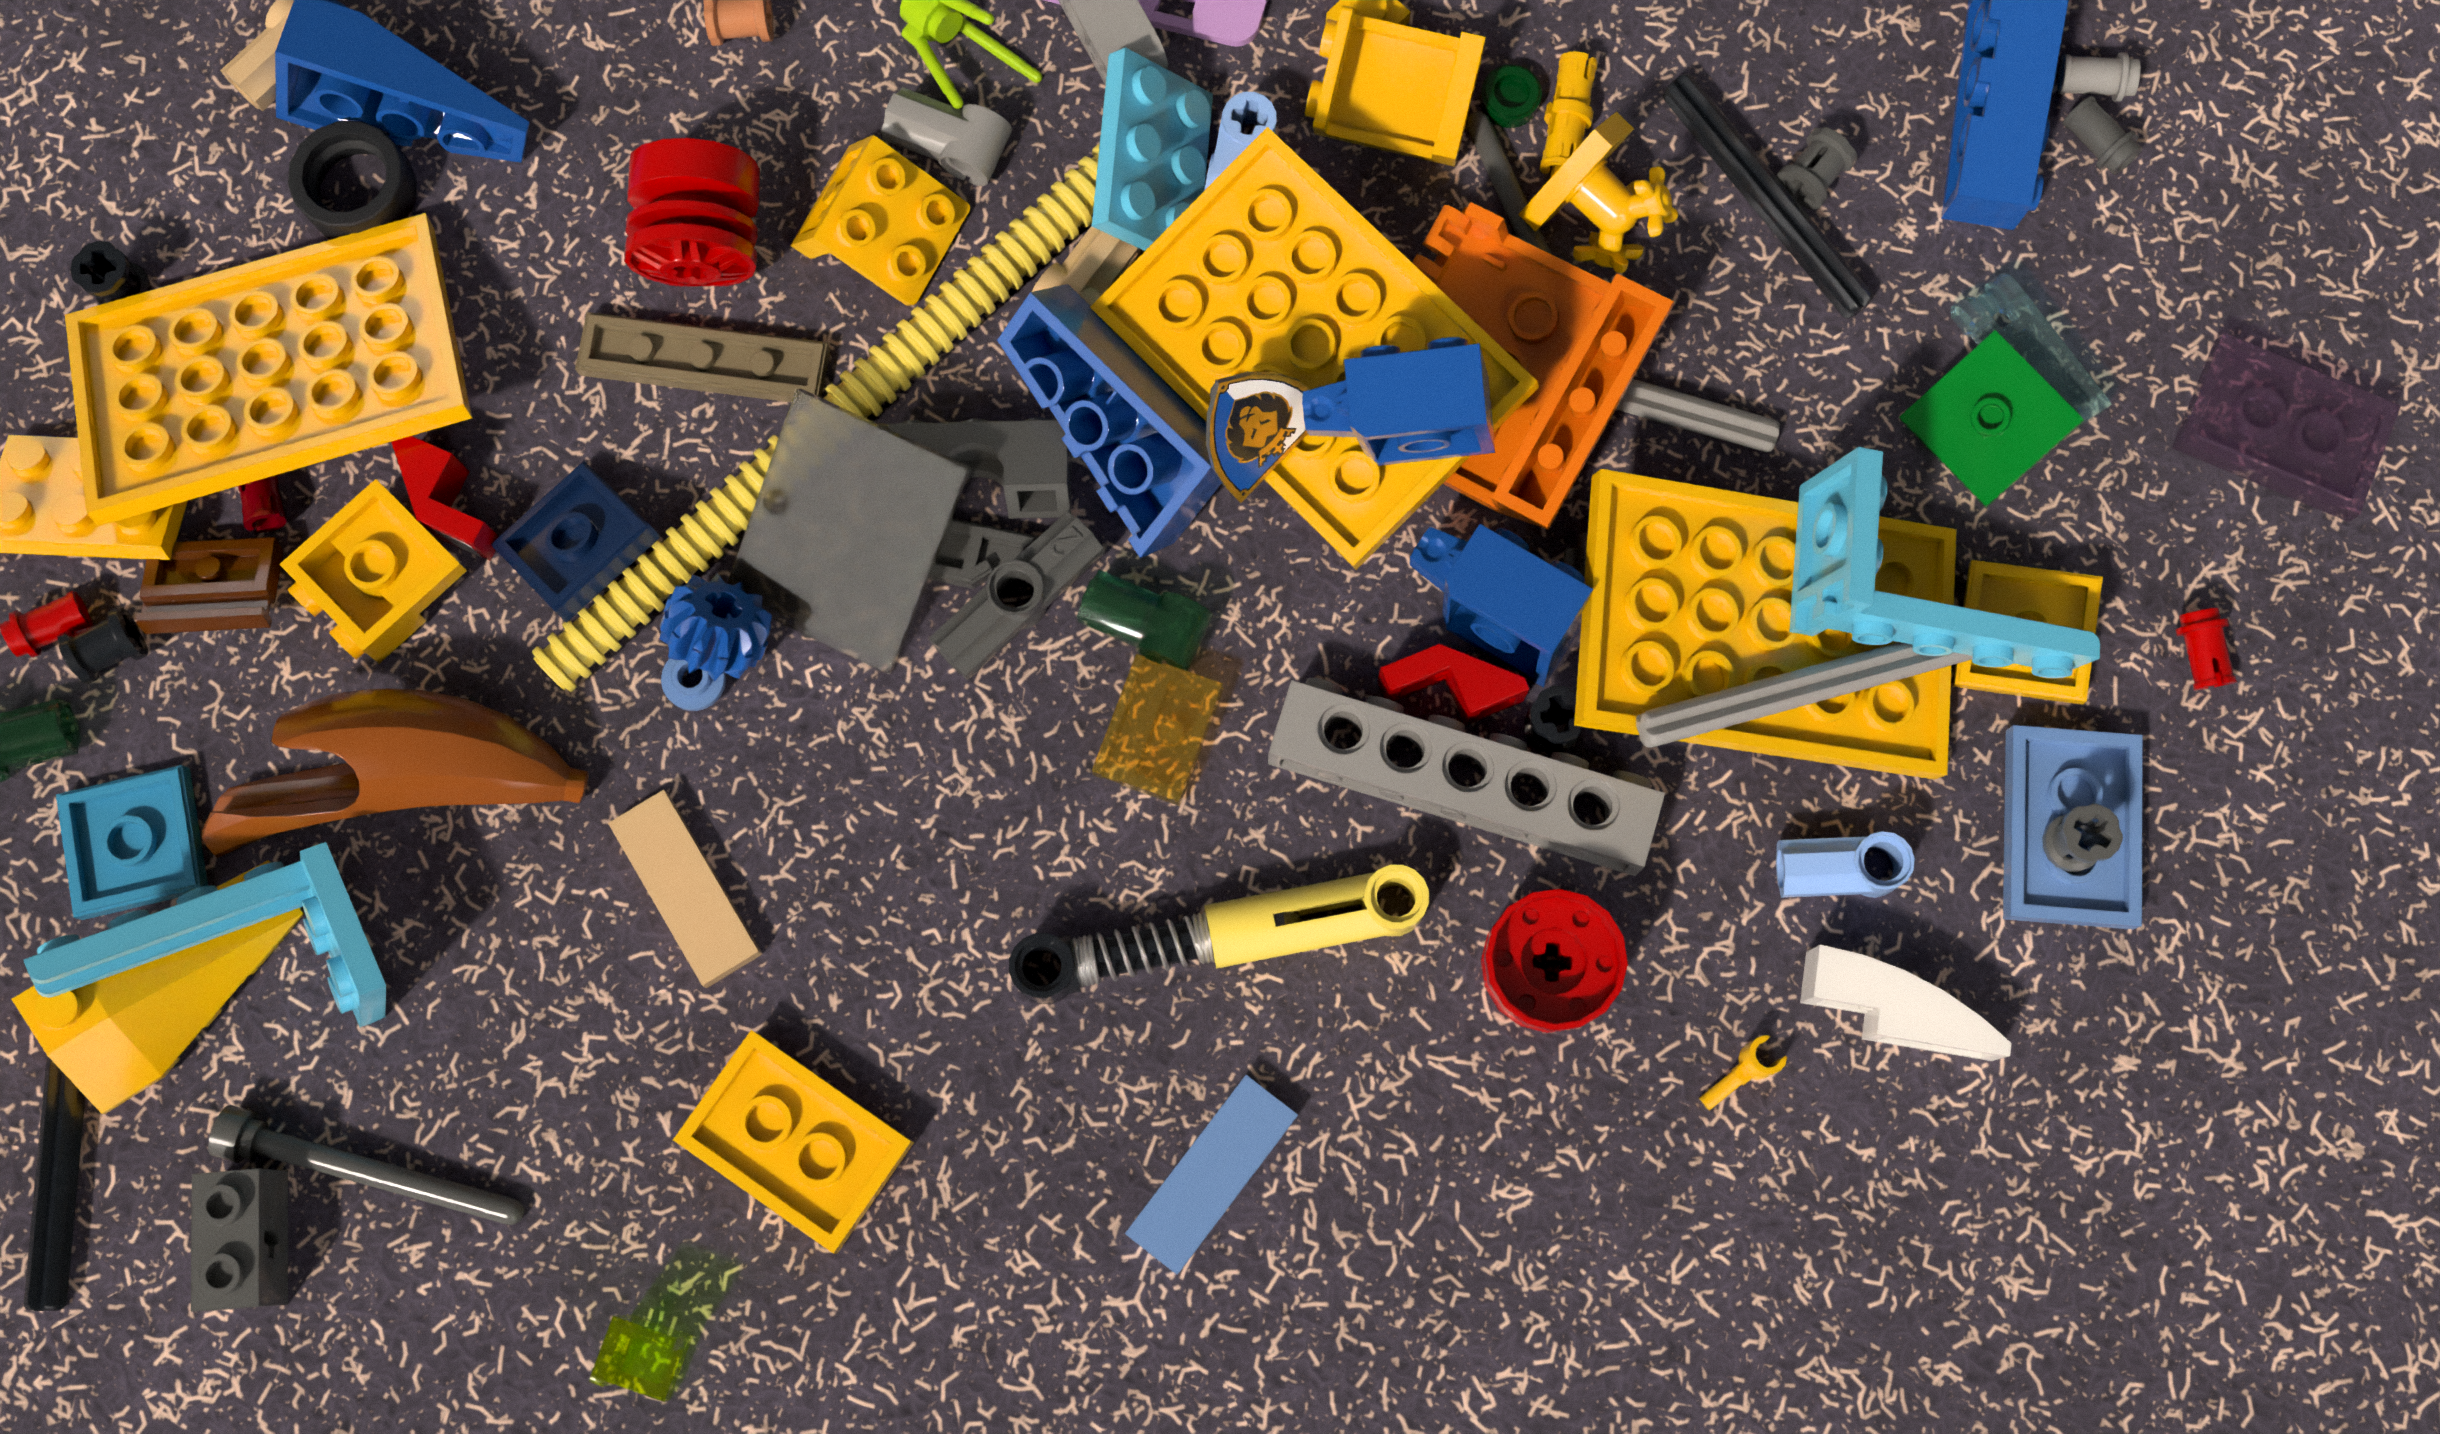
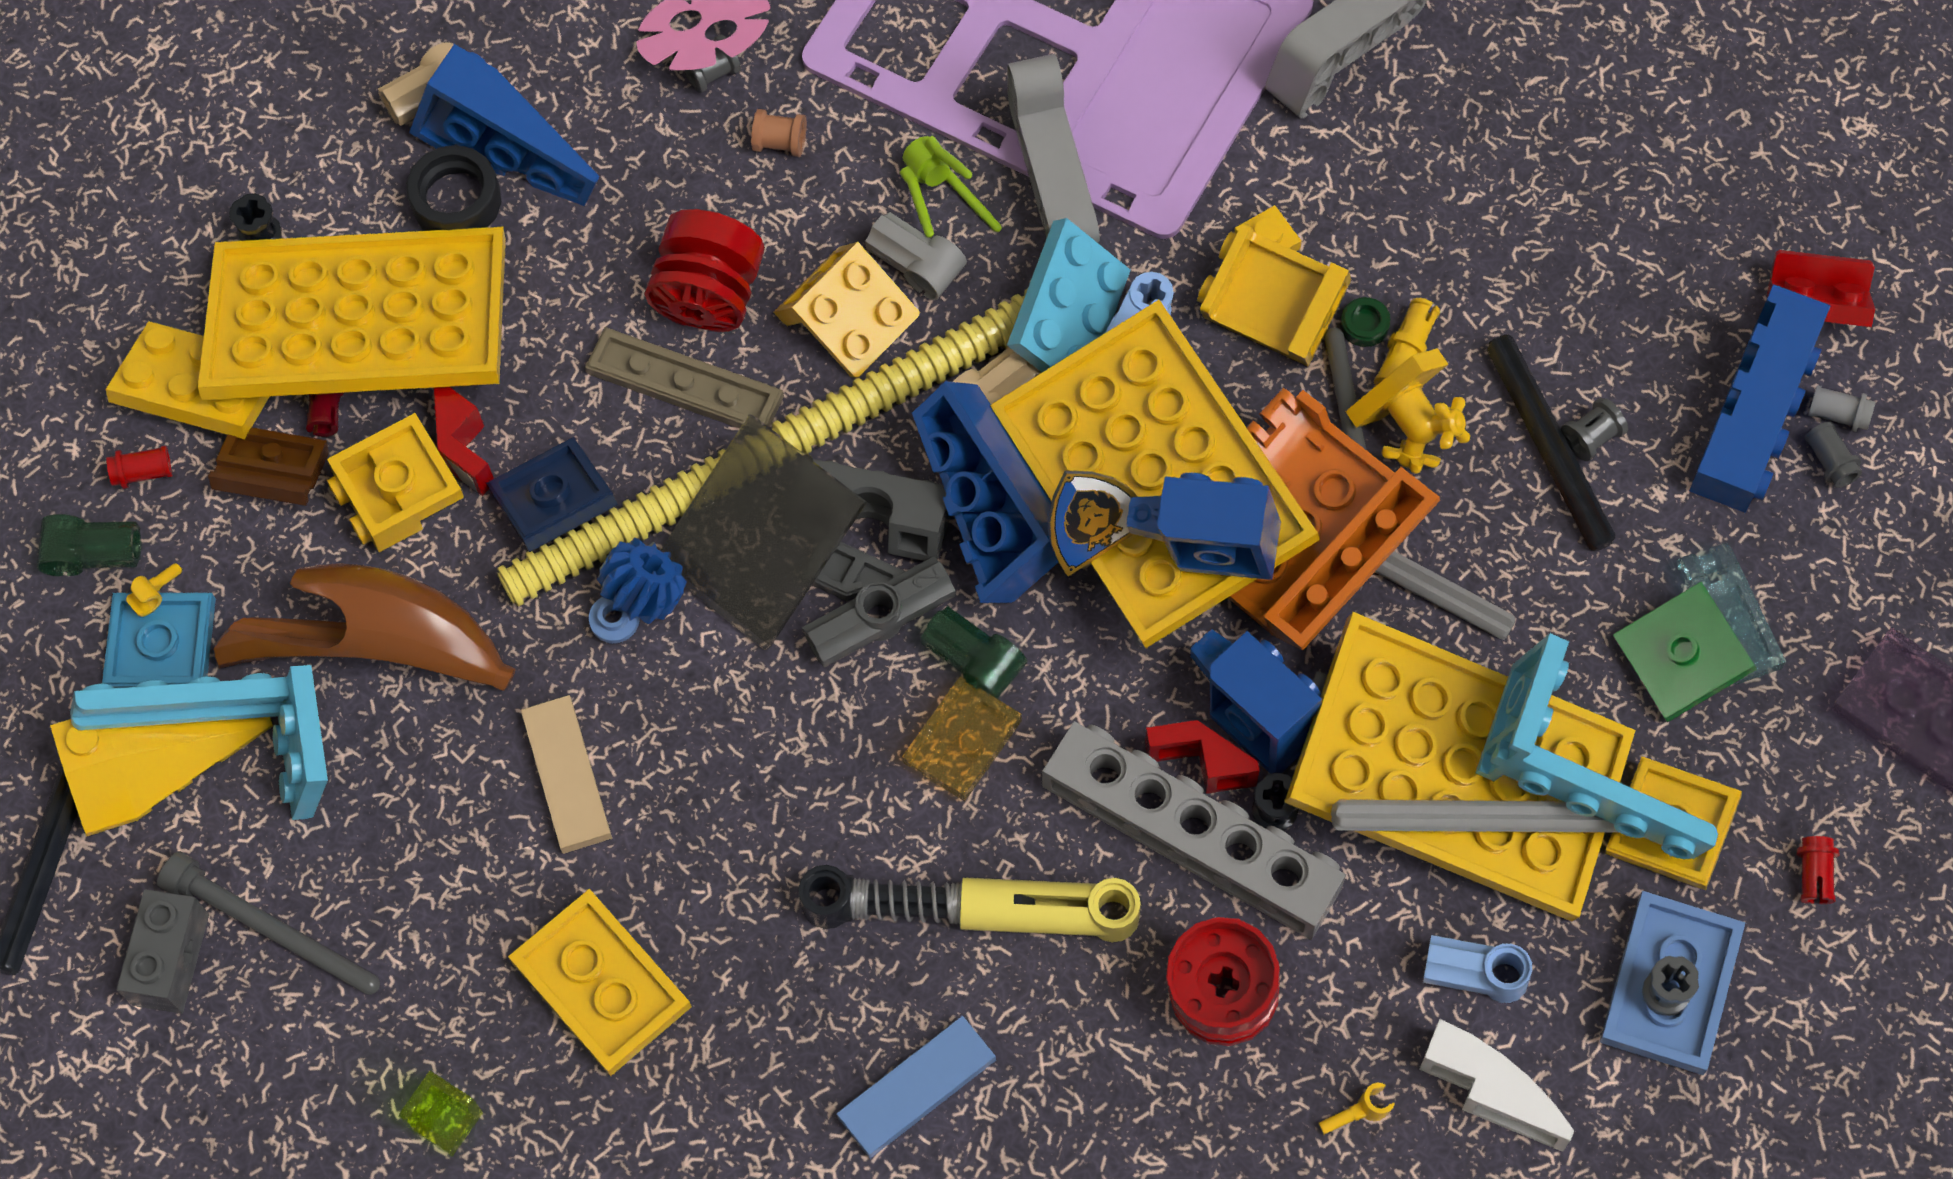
camera: 15 degrees right, 10 degrees down
(93, 788) = (145, 592): none -> yellow hand
(102, 645) = (177, 490): black bush -> none

